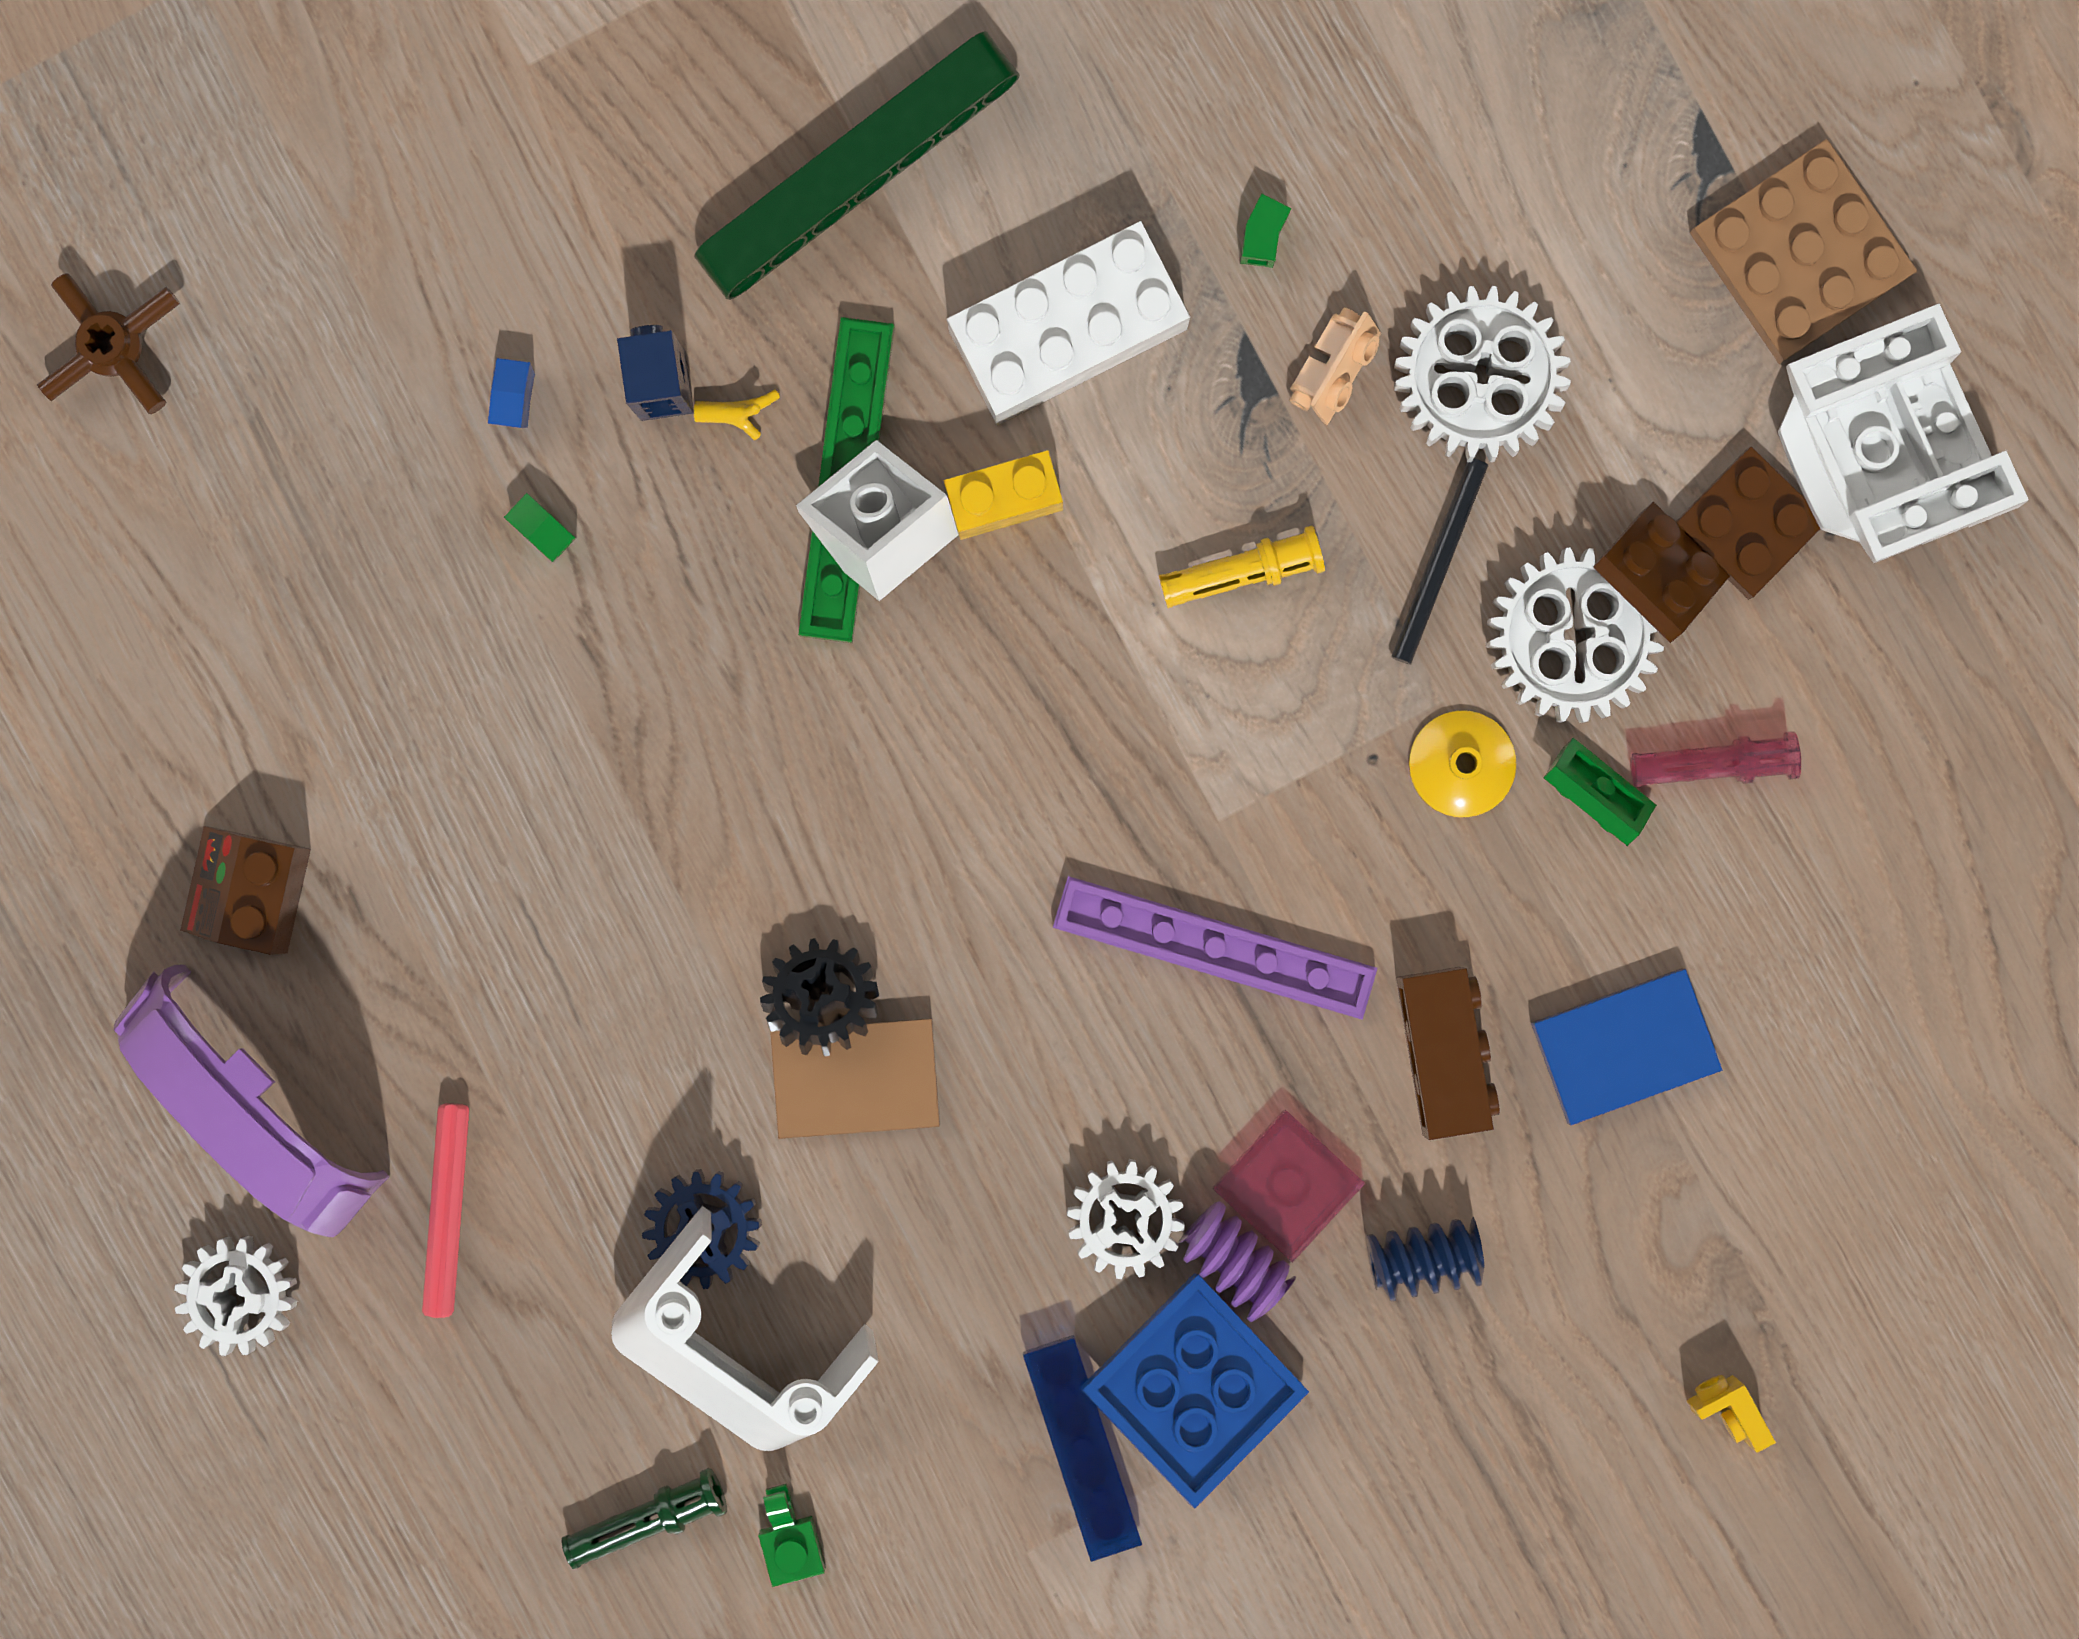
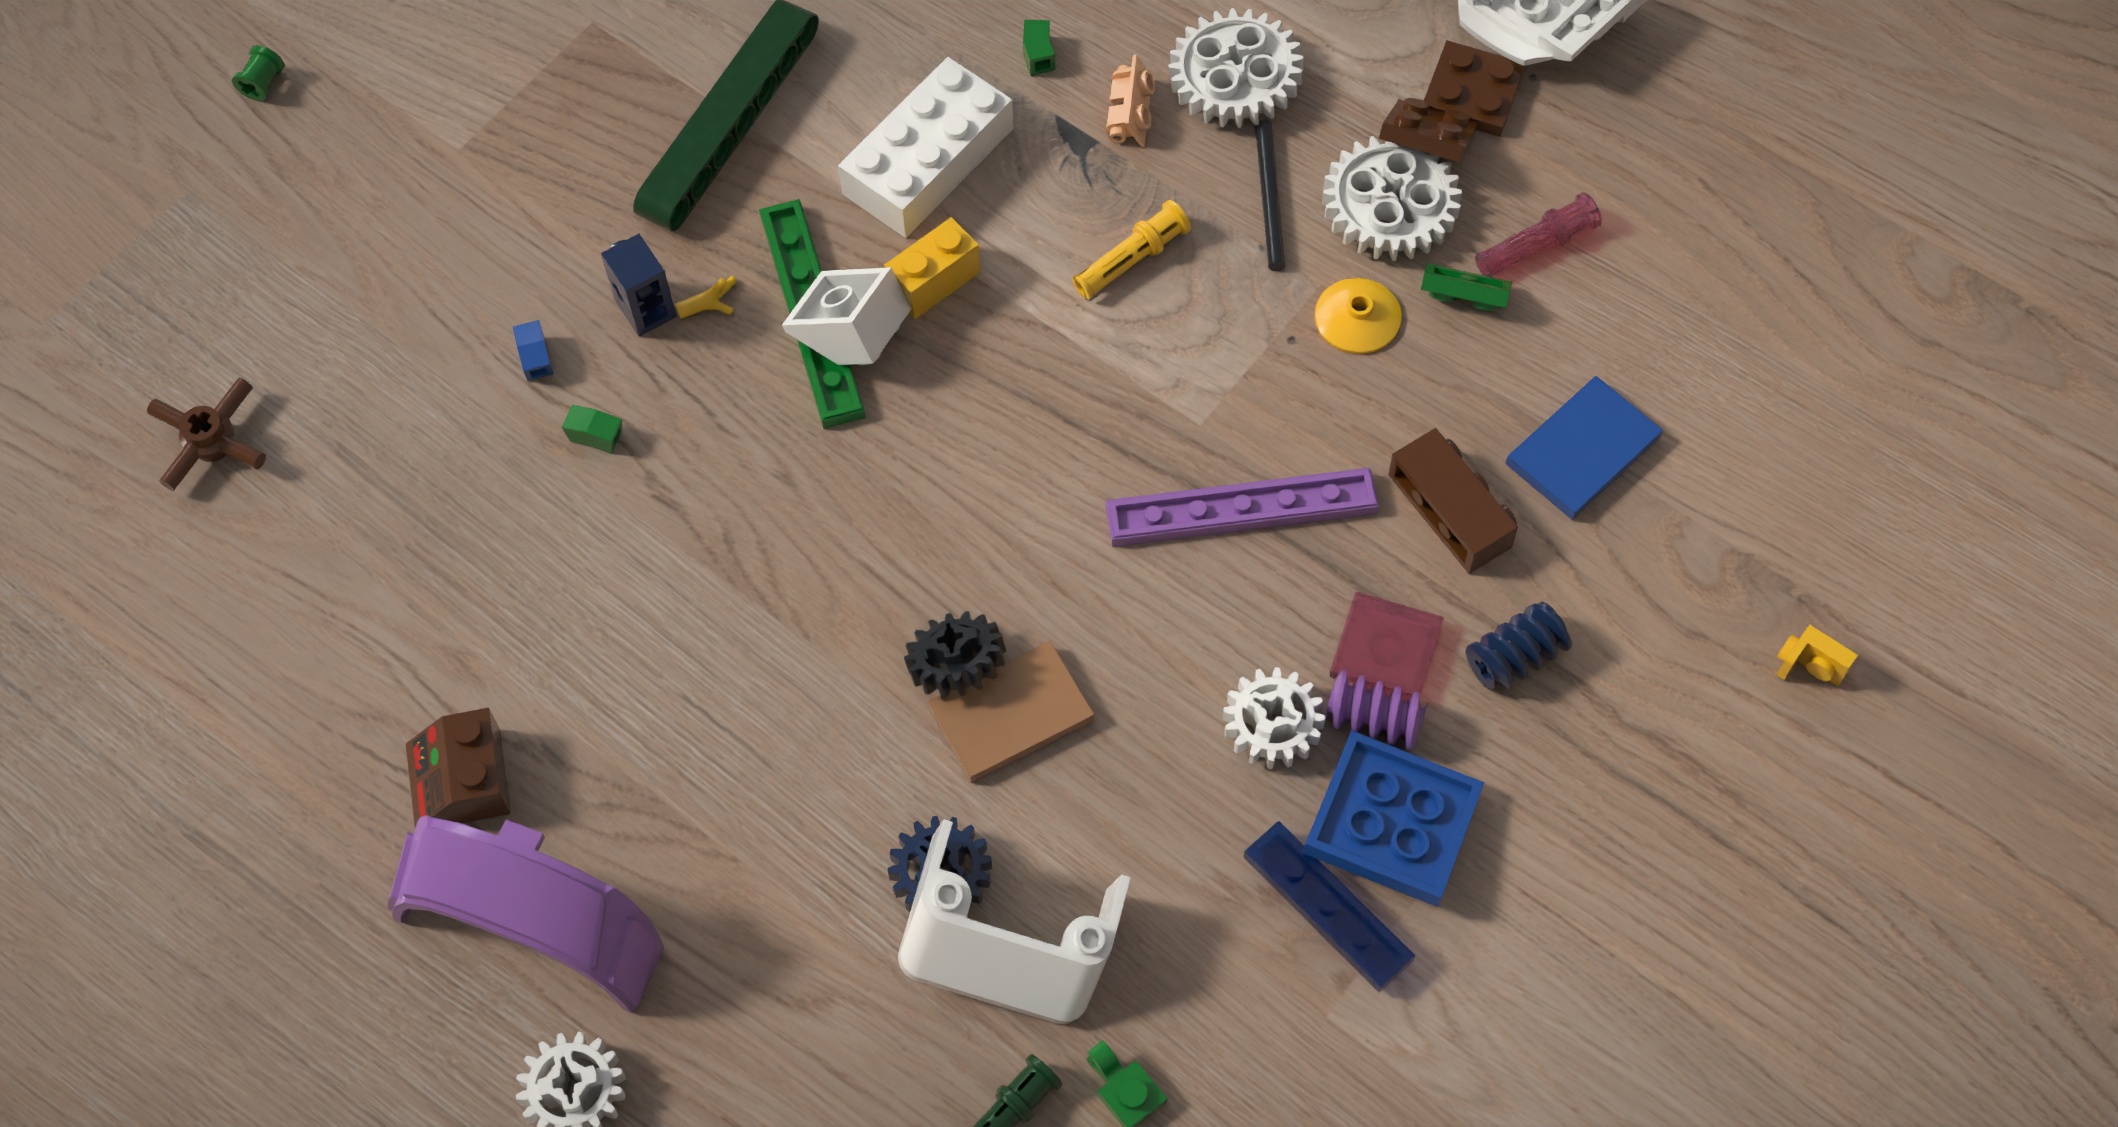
camera: 25 degrees left, 25 degrees down
(445, 1210) = (722, 950): coral axle -> none

